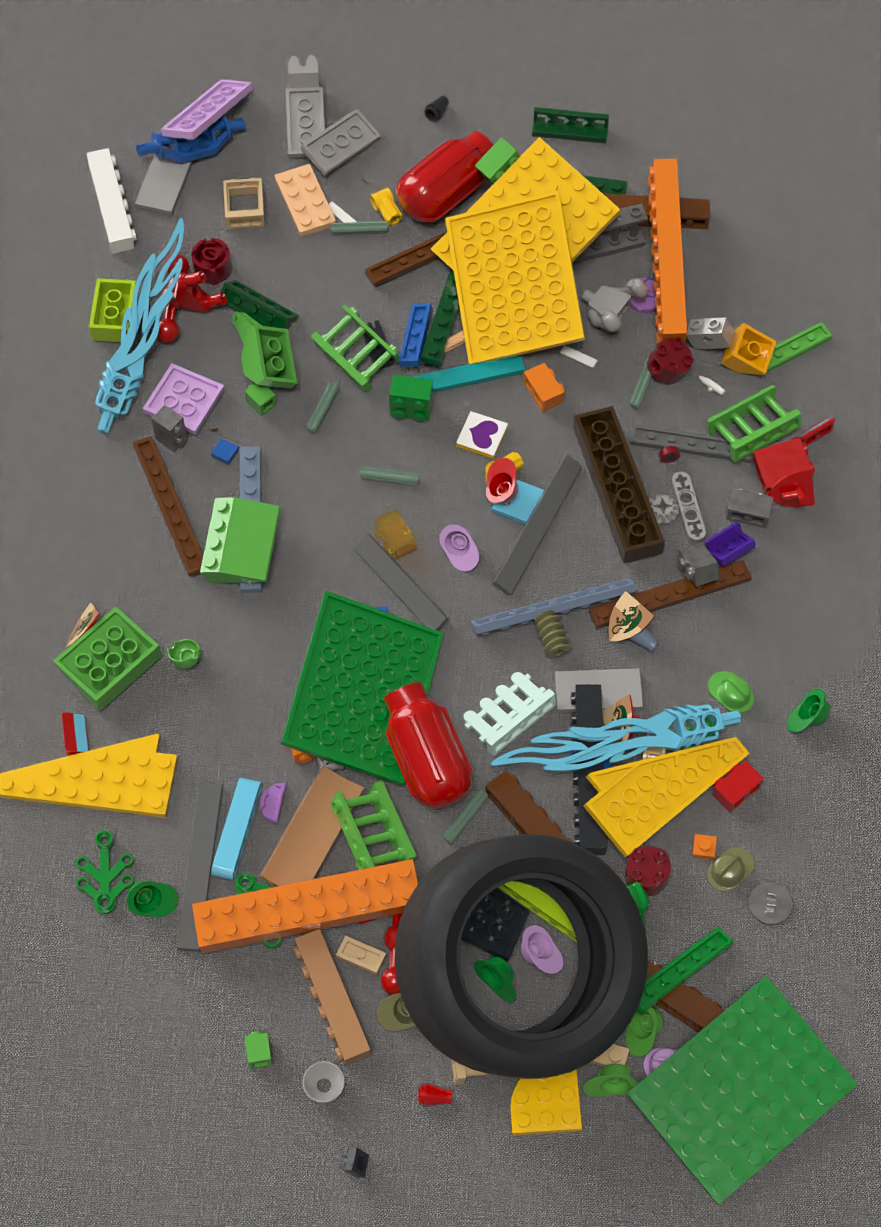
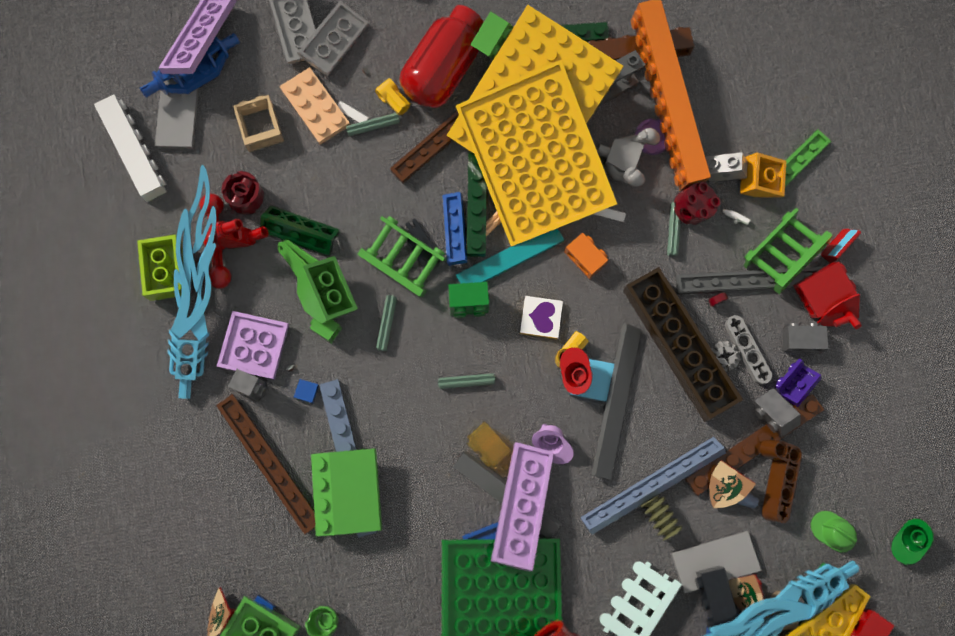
camera: 15 degrees left, 15 degrees up
(412, 588) = (522, 507): none -> lavender plate
(675, 650) = (782, 479): none -> reddish brown beam

